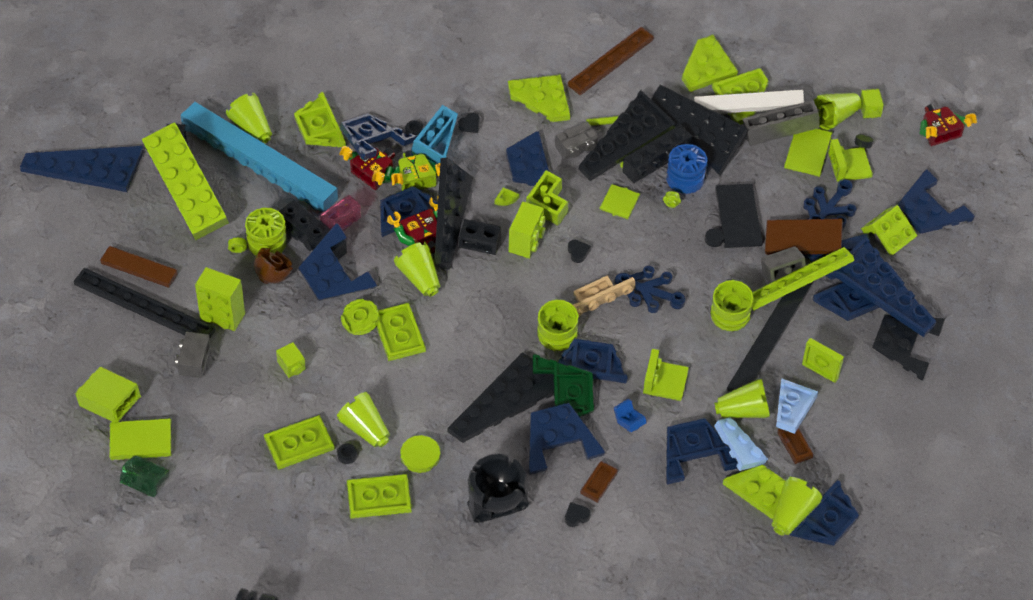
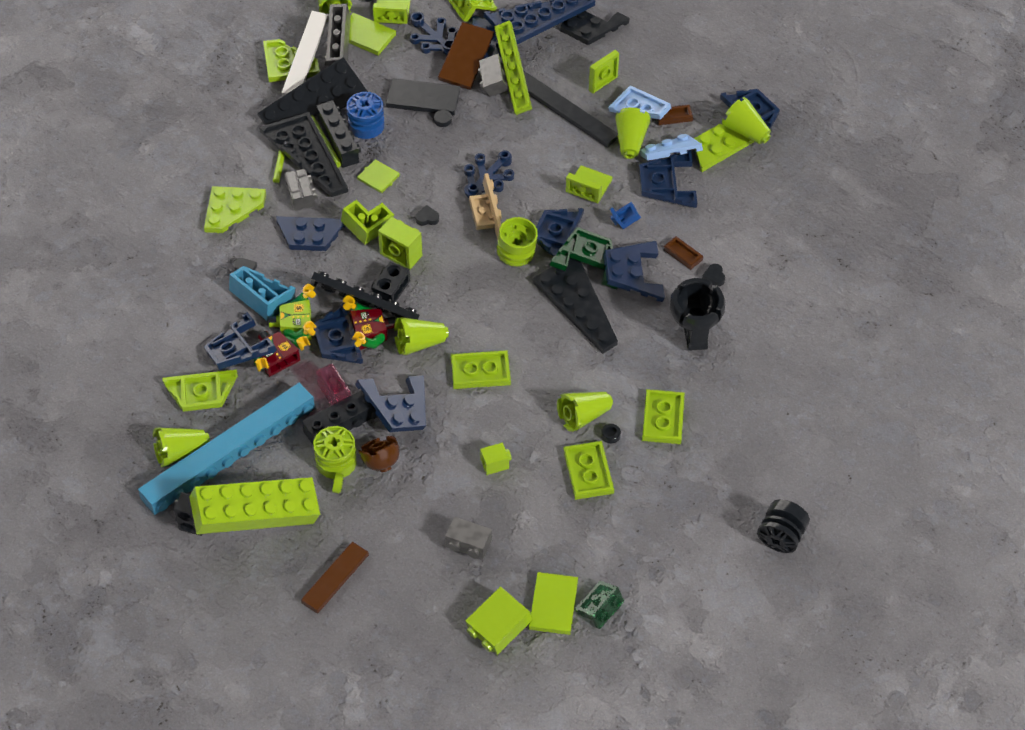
camera: 75 degrees left, 0 degrees up
(96, 167) = (184, 600): dark blue wing -> none
(141, 304) = (385, 581): black tile -> none
(220, 299) = (417, 497): lime brick -> none
(360, 317) = (457, 395): lime tile -> none
(413, 127) = (234, 313): black tile -> none
(420, 453) = (624, 376): lime tile -> none
(506, 197) = (345, 258): lime tile -> none
(610, 61) = (207, 147): reddish brown tile -> none
(672, 199) = (391, 137): lime plate -> none
(707, 65) = (239, 79): lime plate -> none
(731, 305) = (529, 117): lime wheel -> none
(844, 302) = (540, 48): dark blue wing -> none

